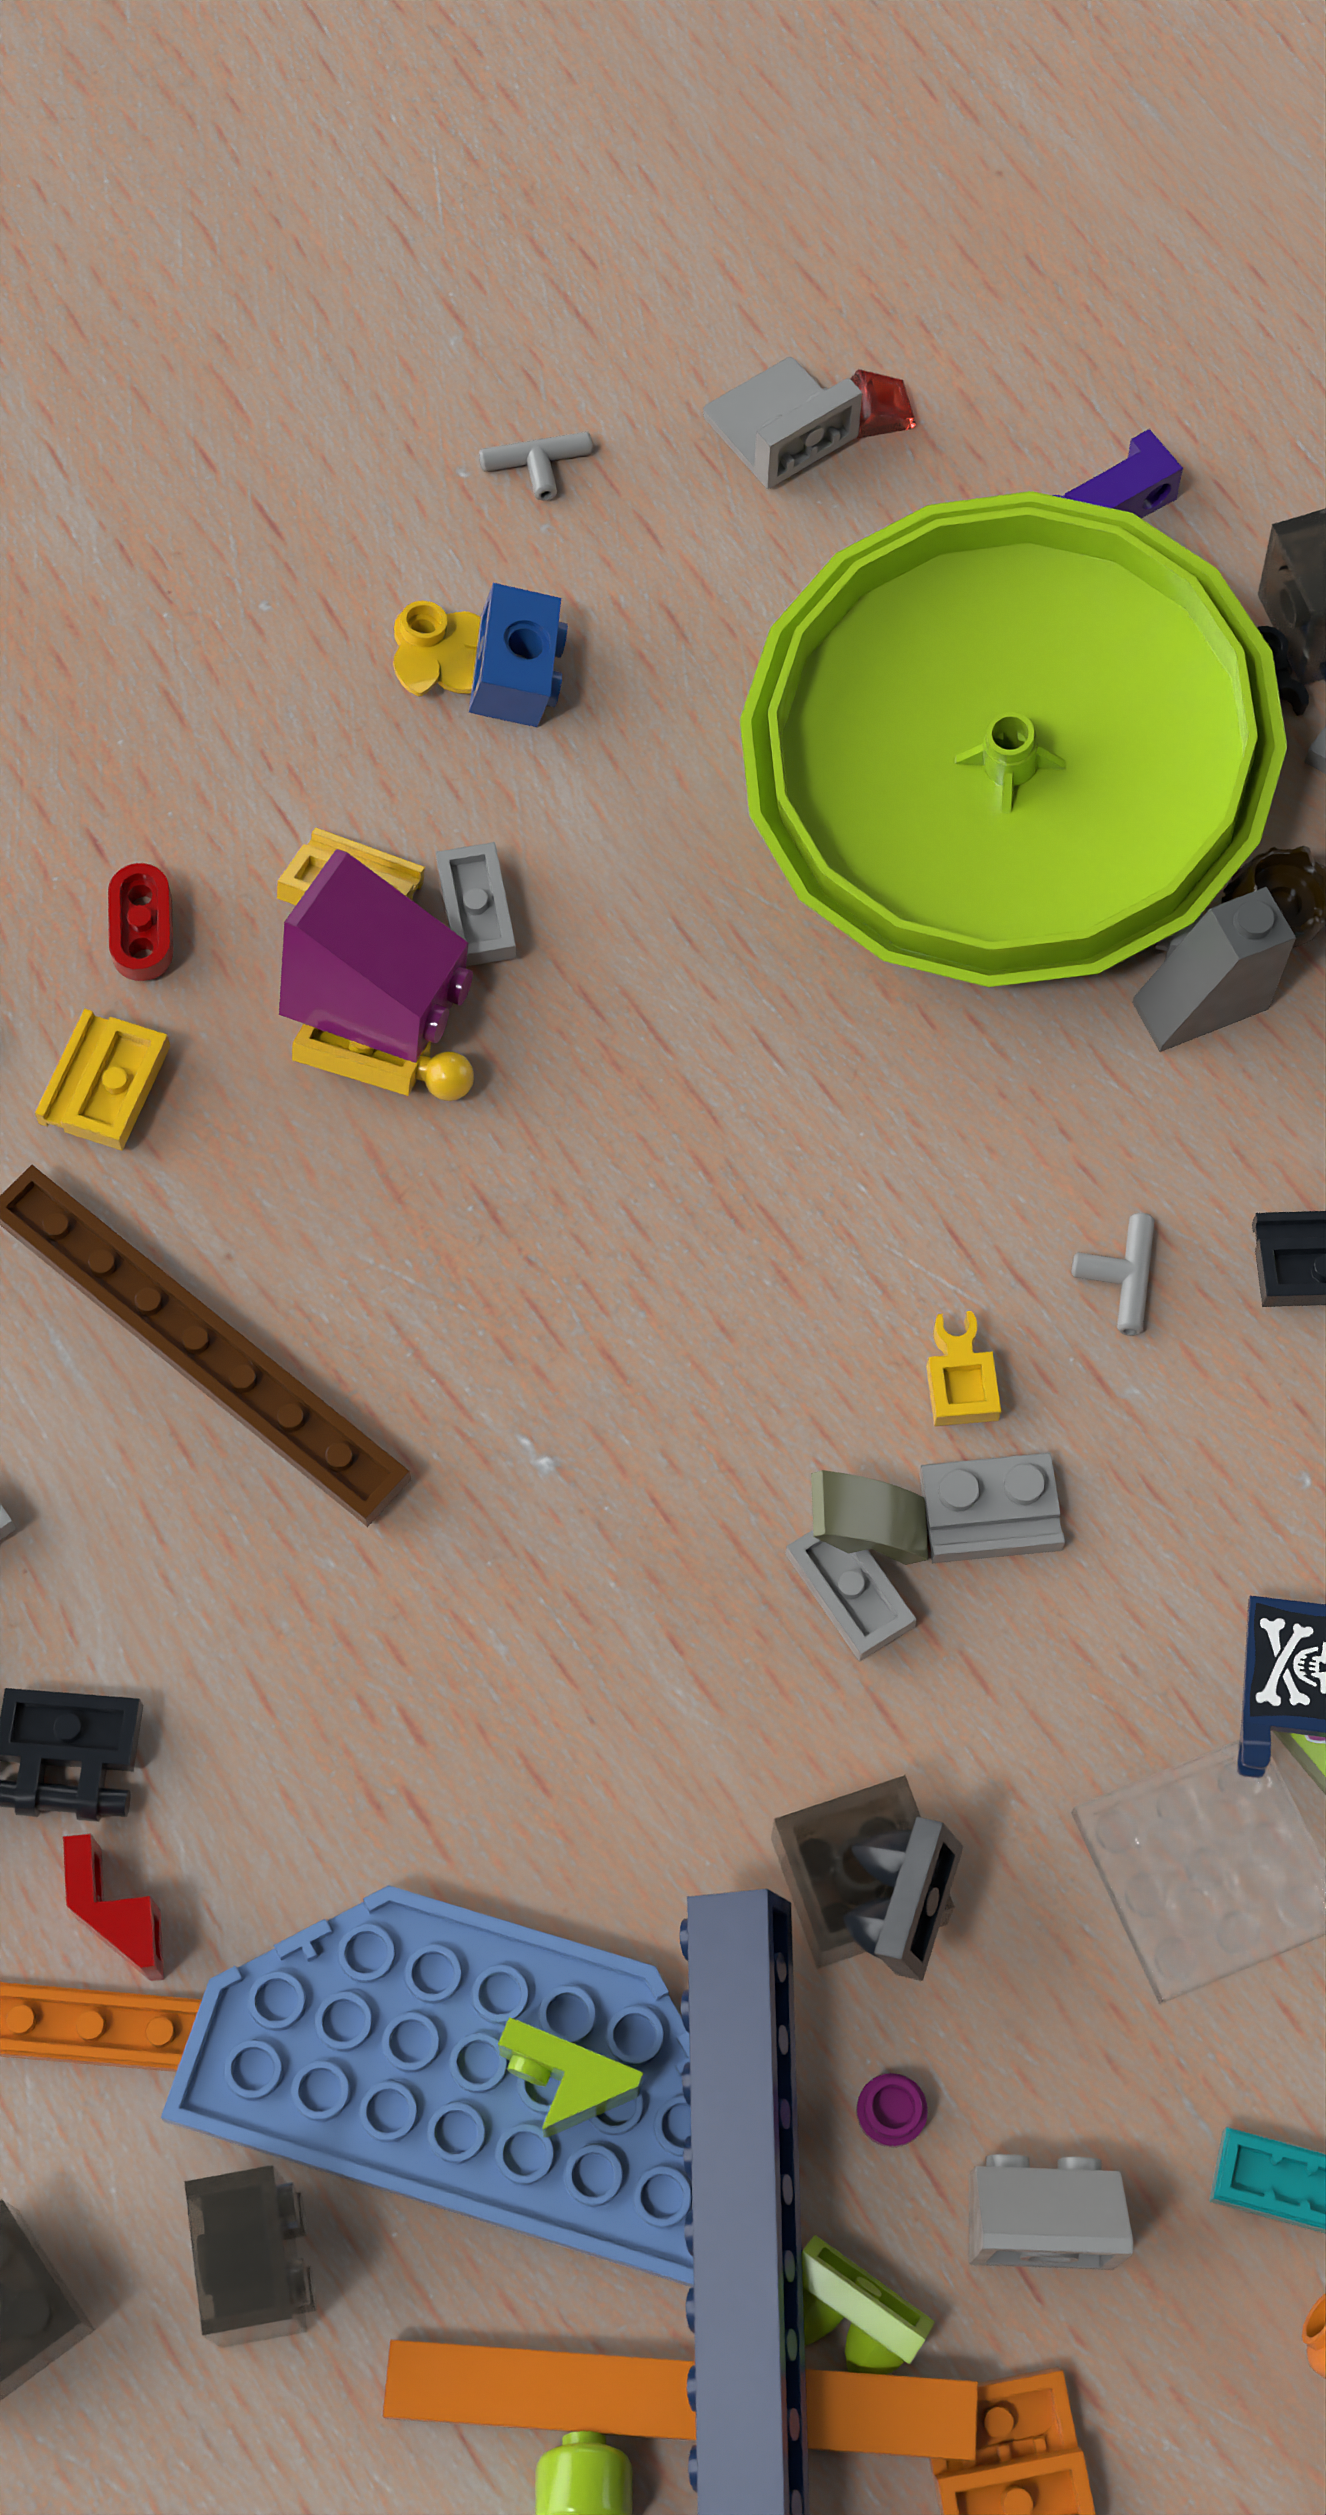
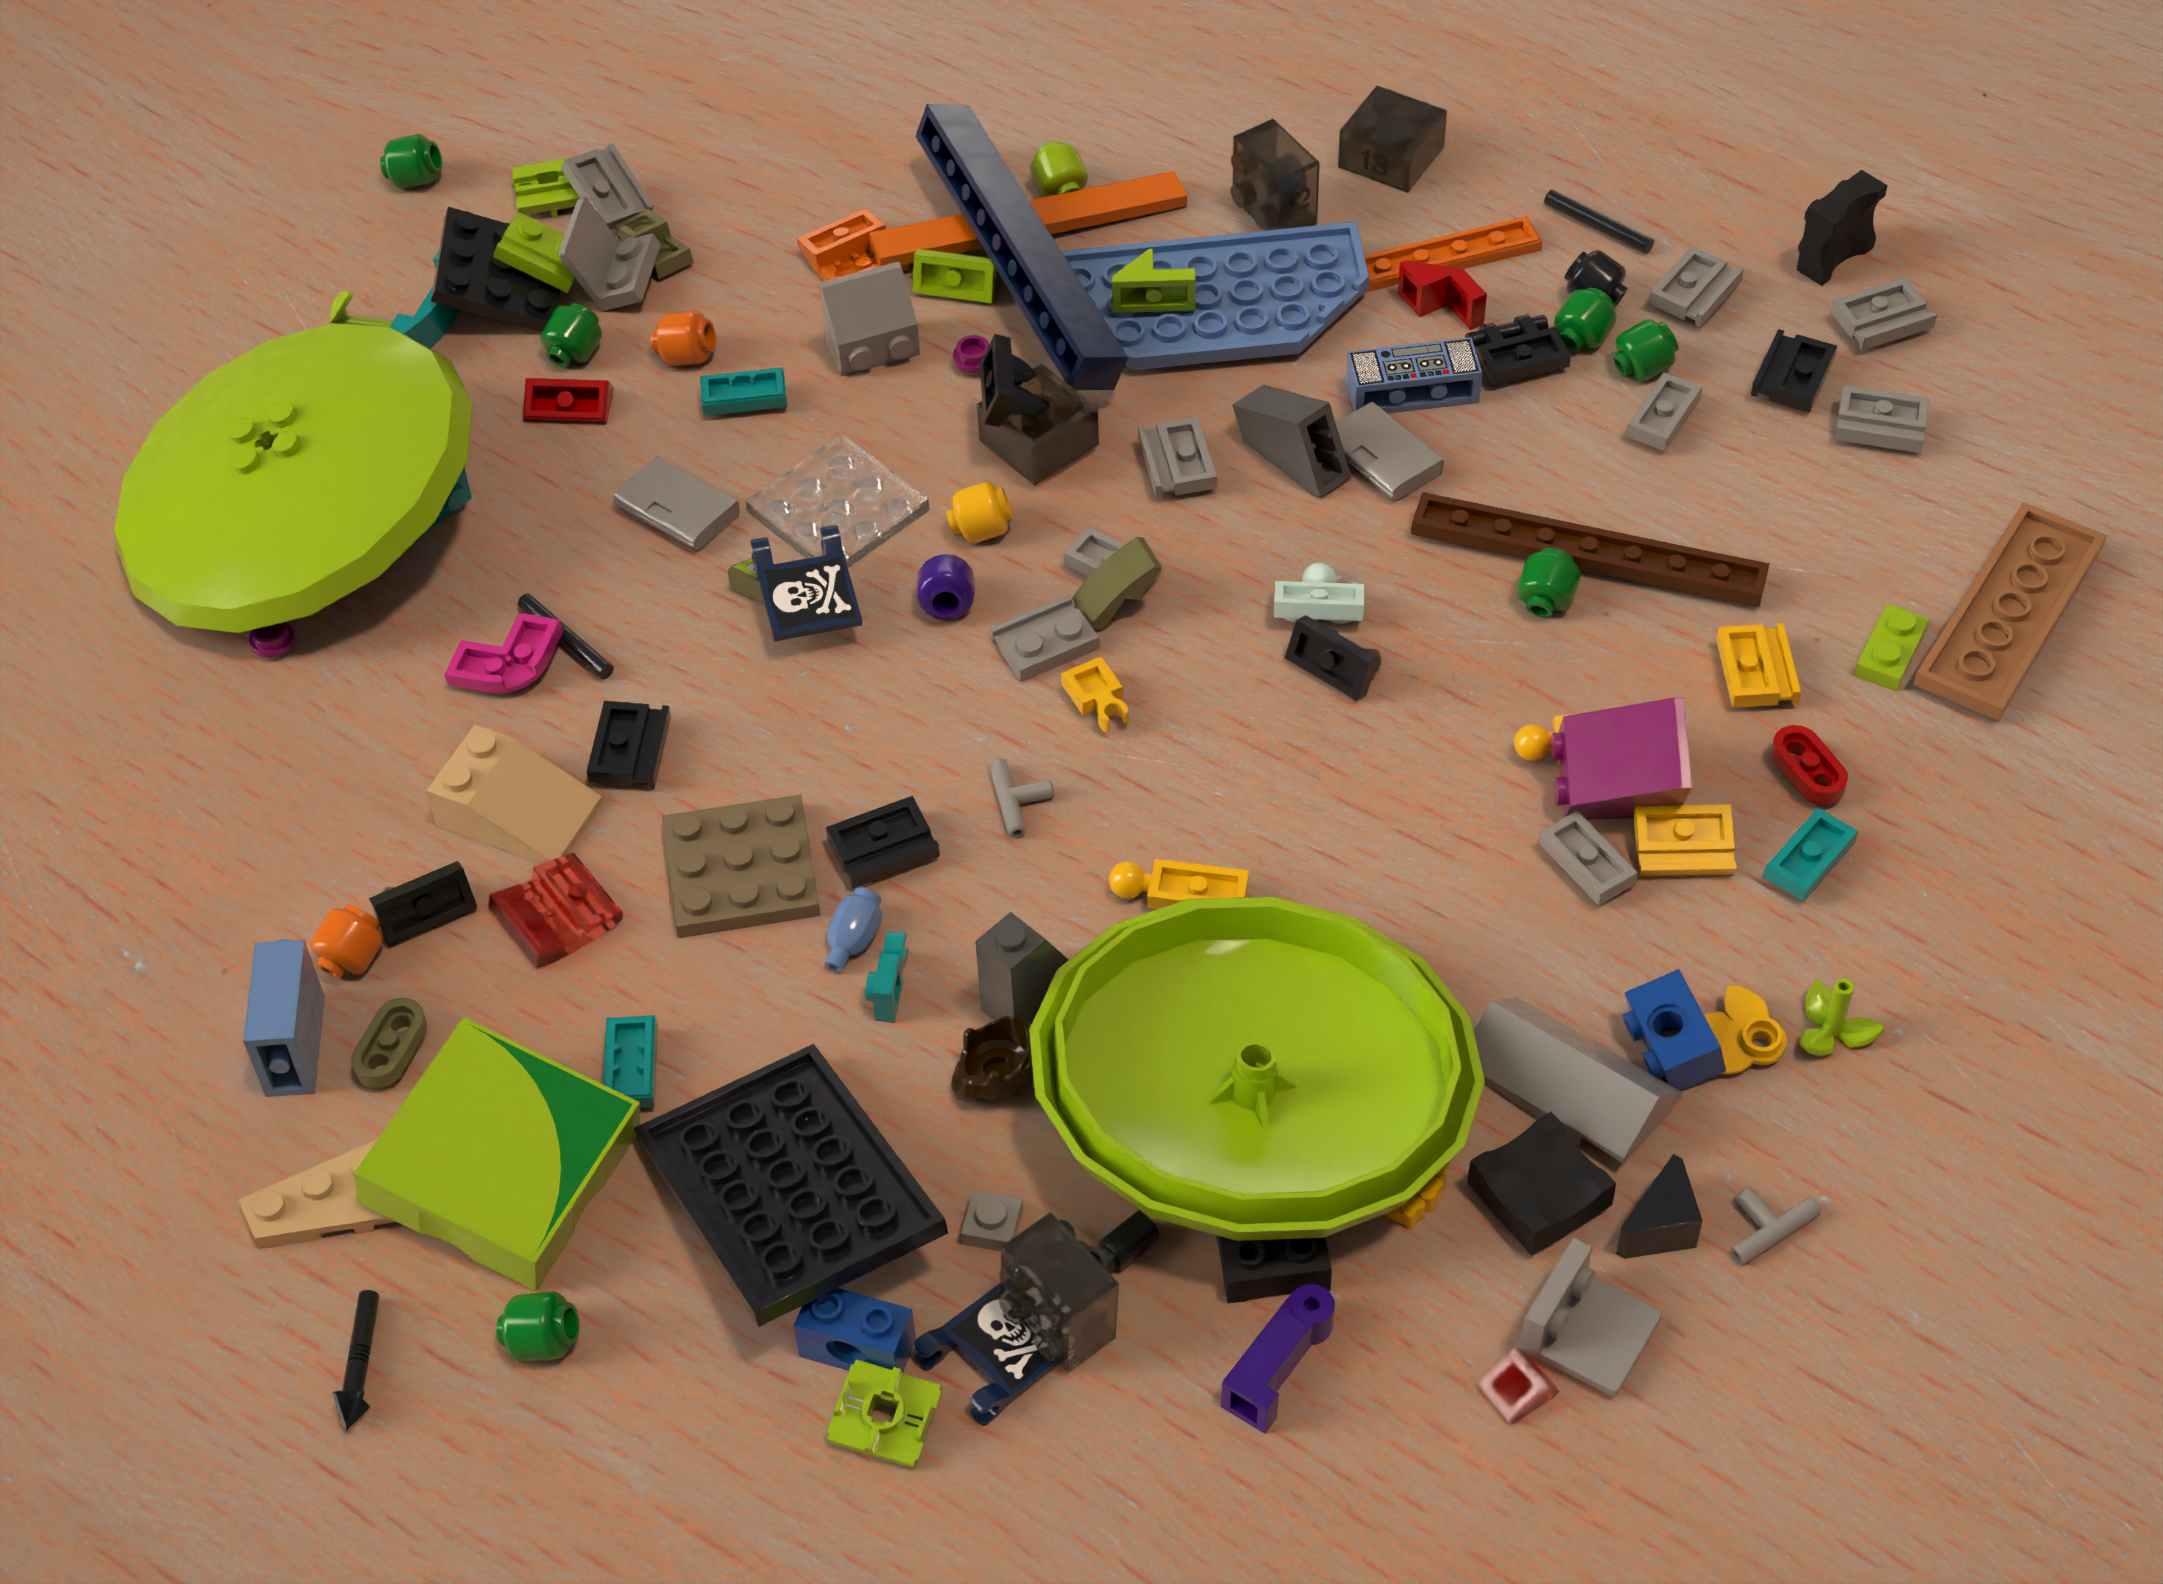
camera: 160 degrees right, 15 degrees down
(220, 811) = (1810, 854): none -> teal plate
(253, 1752) = (1415, 376): none -> medium blue brick
(285, 1300) = (1548, 582): none -> green head
(324, 615) = (1830, 1011): none -> lime plant
(371, 1641) = (1387, 452): none -> light grey piece
(497, 1704) = (1295, 436): none -> dark grey slope
(599, 1404) = (1319, 597): none -> light aqua plate
(614, 1279) = (1332, 657): none -> black tile
(648, 661) = (1561, 1072): none -> light grey slope
(649, 487) = (1664, 1217): none -> black slope
(672, 1747) = (1177, 457): none -> light grey plate
(750, 555) = (1541, 1184): none -> black brick
(971, 1049) = (1177, 882): none -> yellow plate
(1006, 1750) = (980, 512): none -> yellow head
(1104, 1630) = (945, 587): none -> dark purple head

